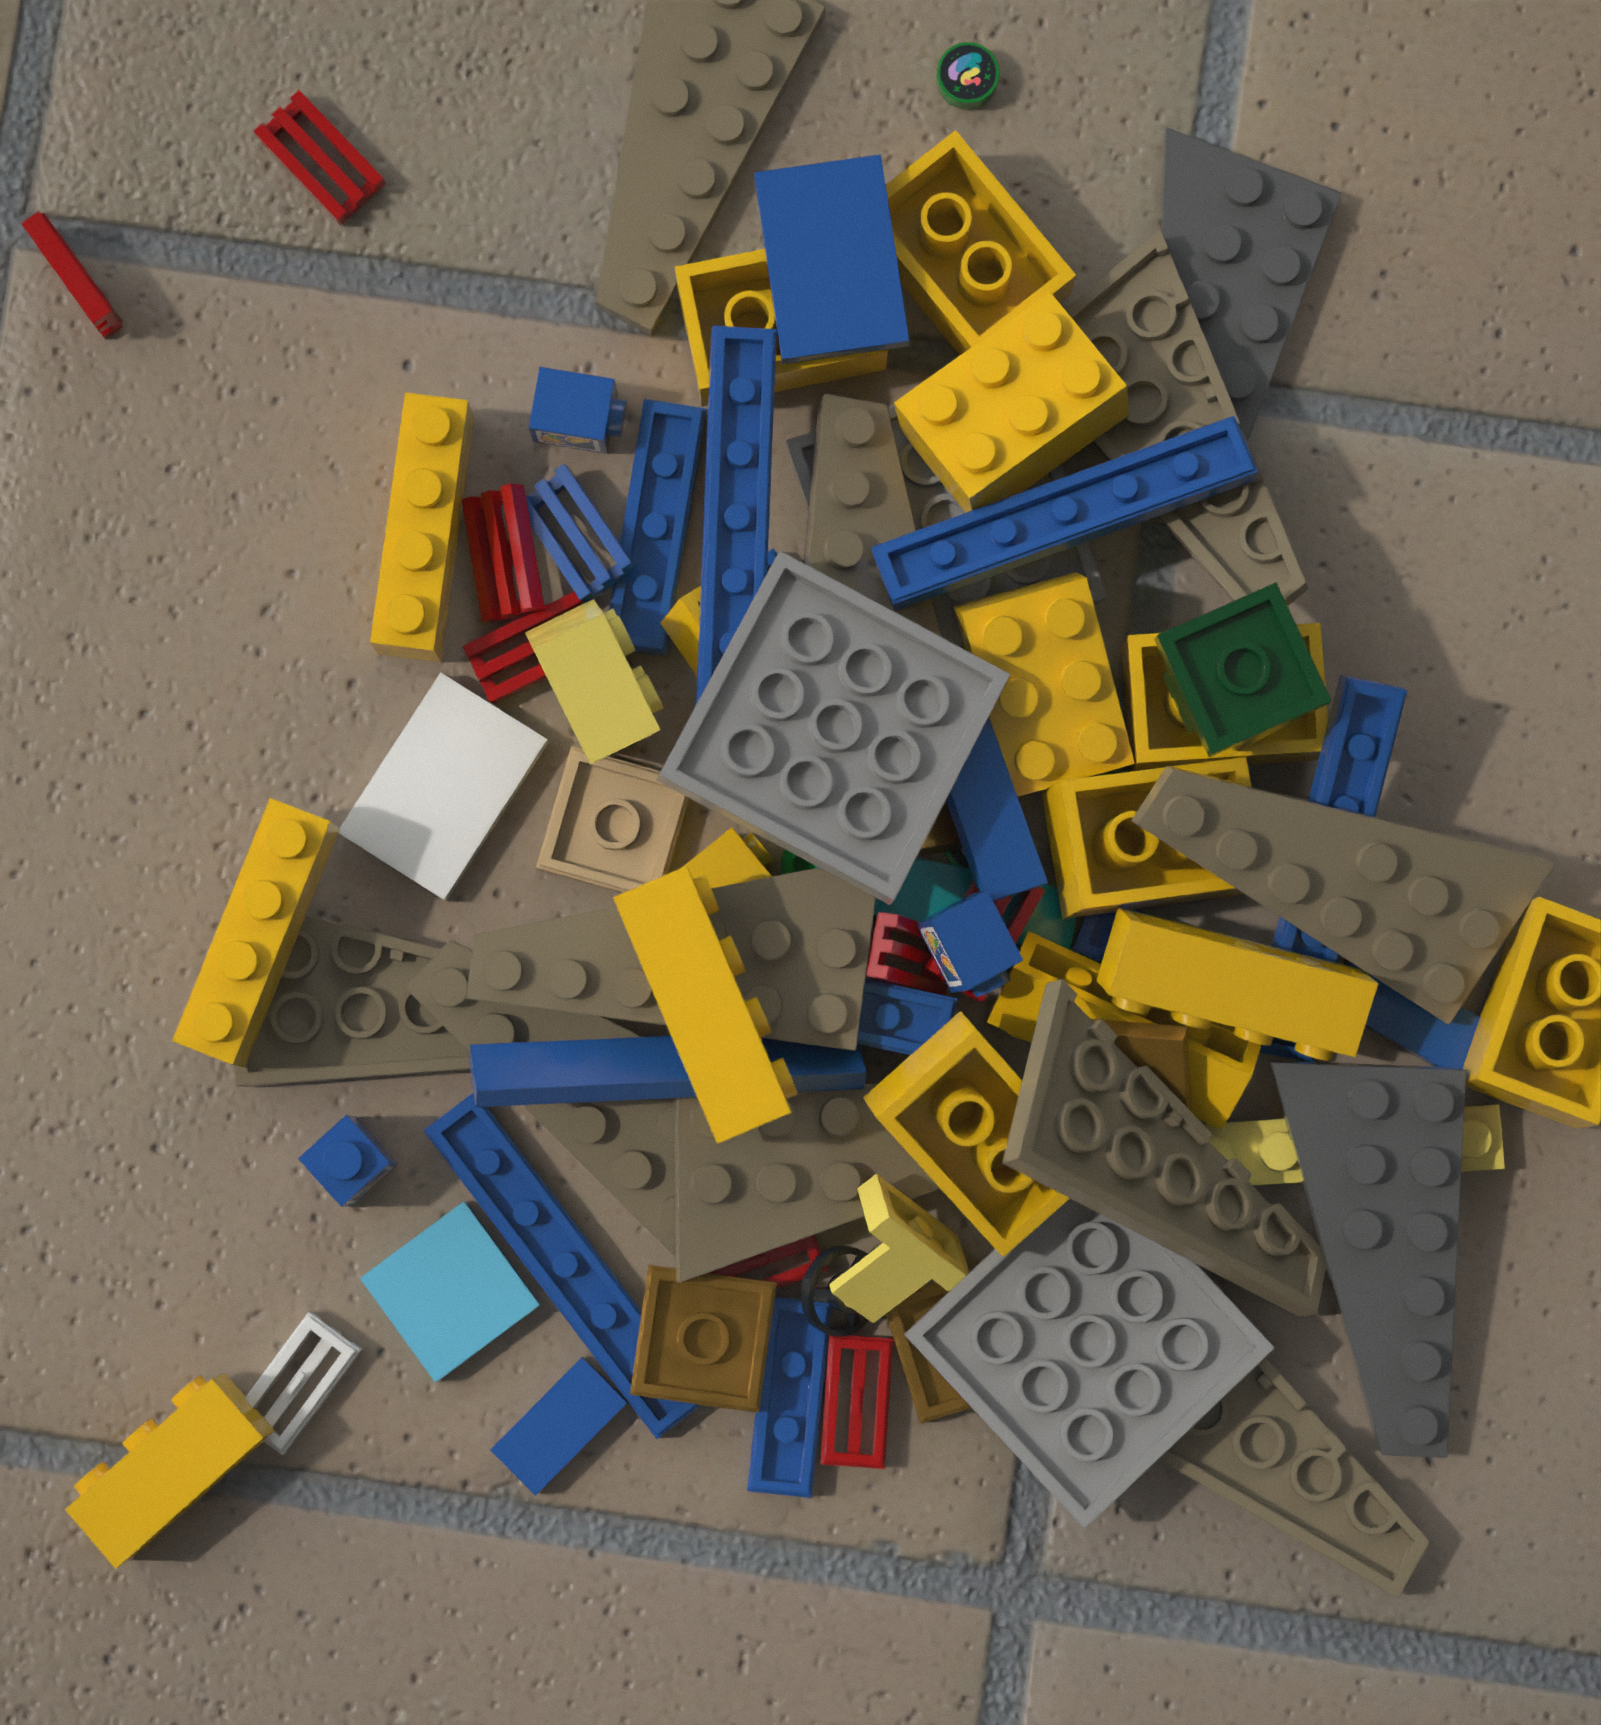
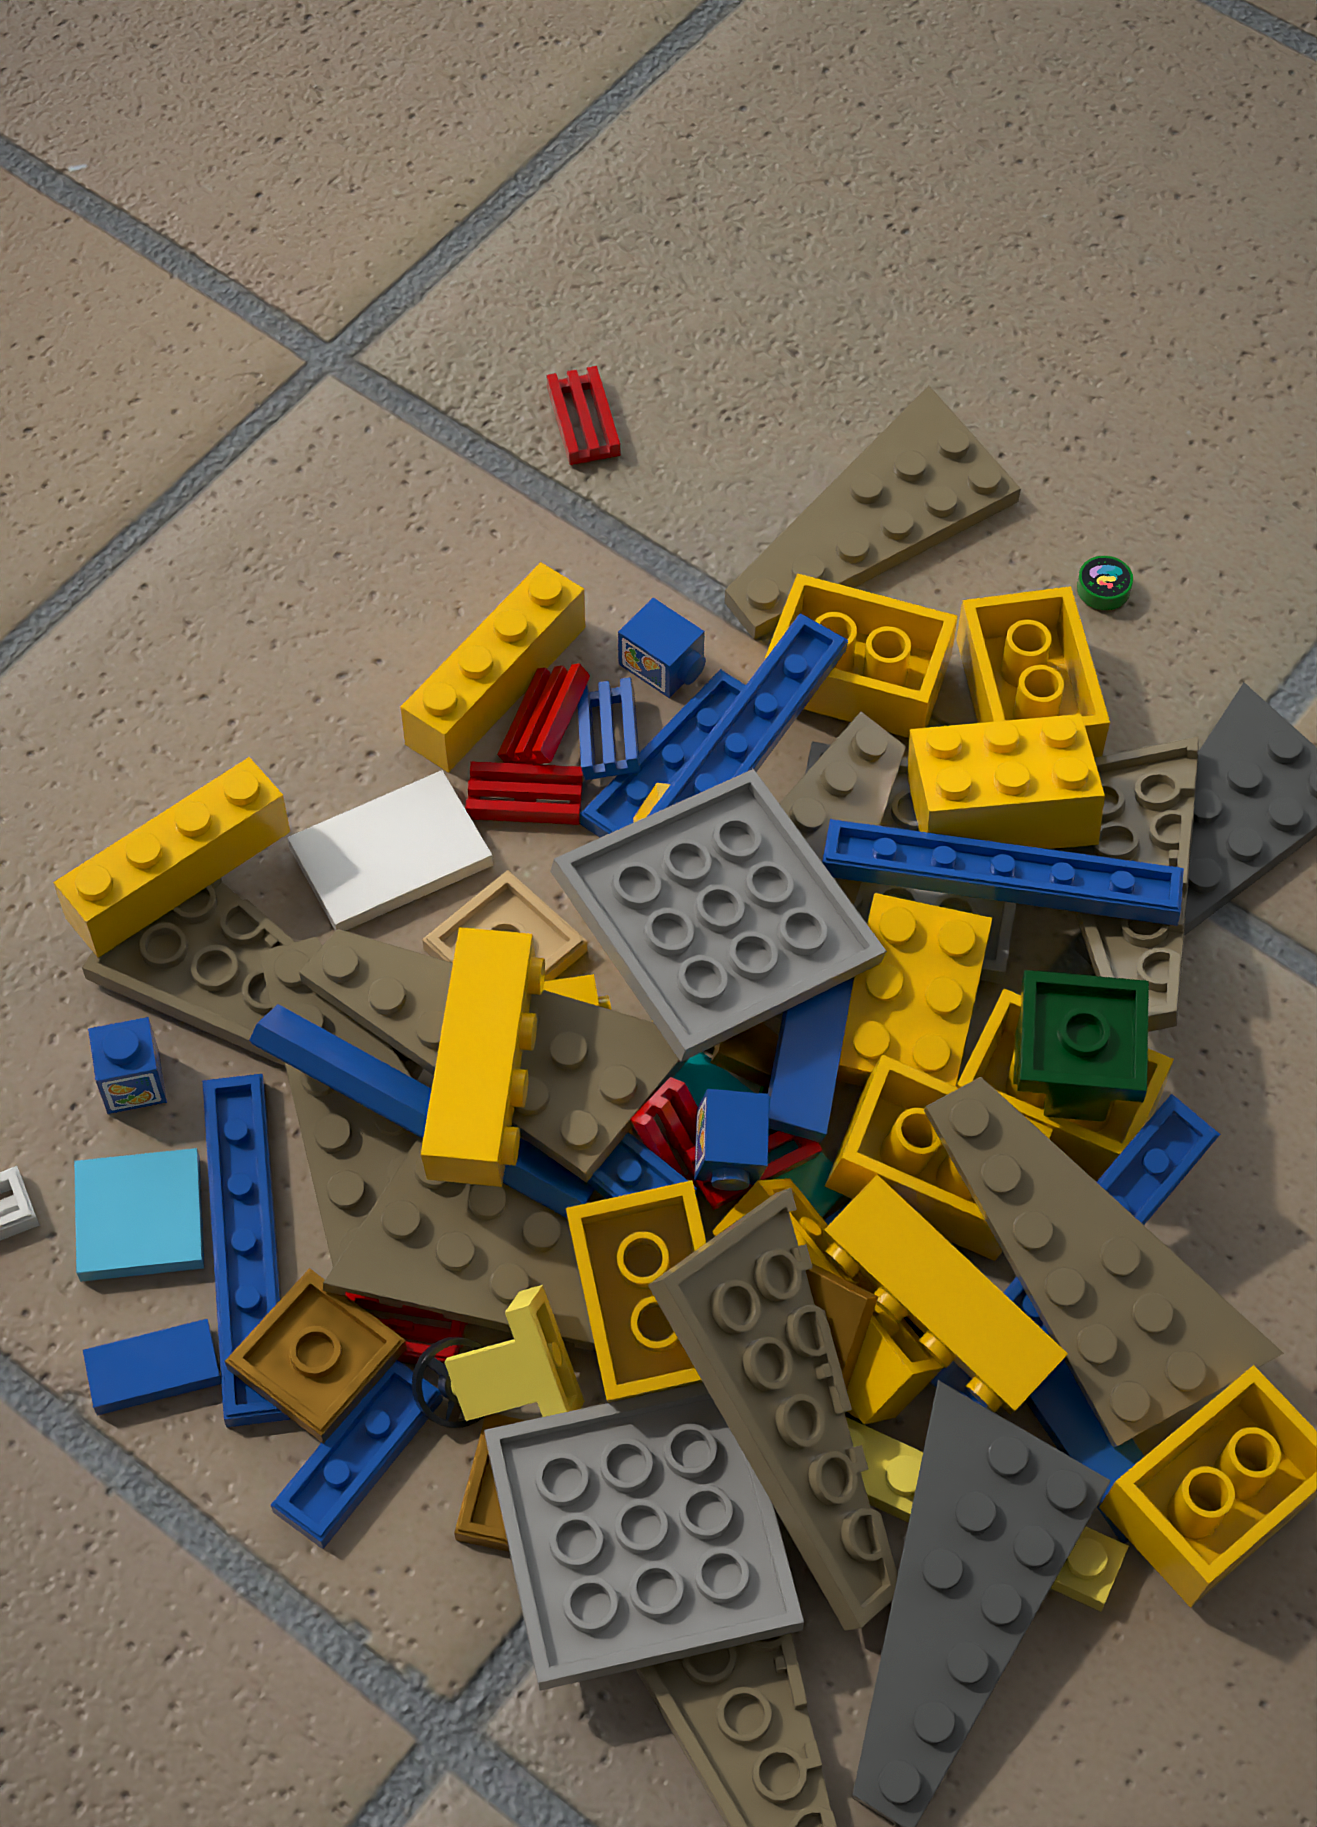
camera: 30 degrees right, 25 degrees down
(73, 274) = (356, 398): red tile -> none
(593, 681) = (551, 804): light yellow brick -> none
(831, 259) = (920, 619): blue tile -> none
(853, 1457) = (380, 1531): red tile -> none

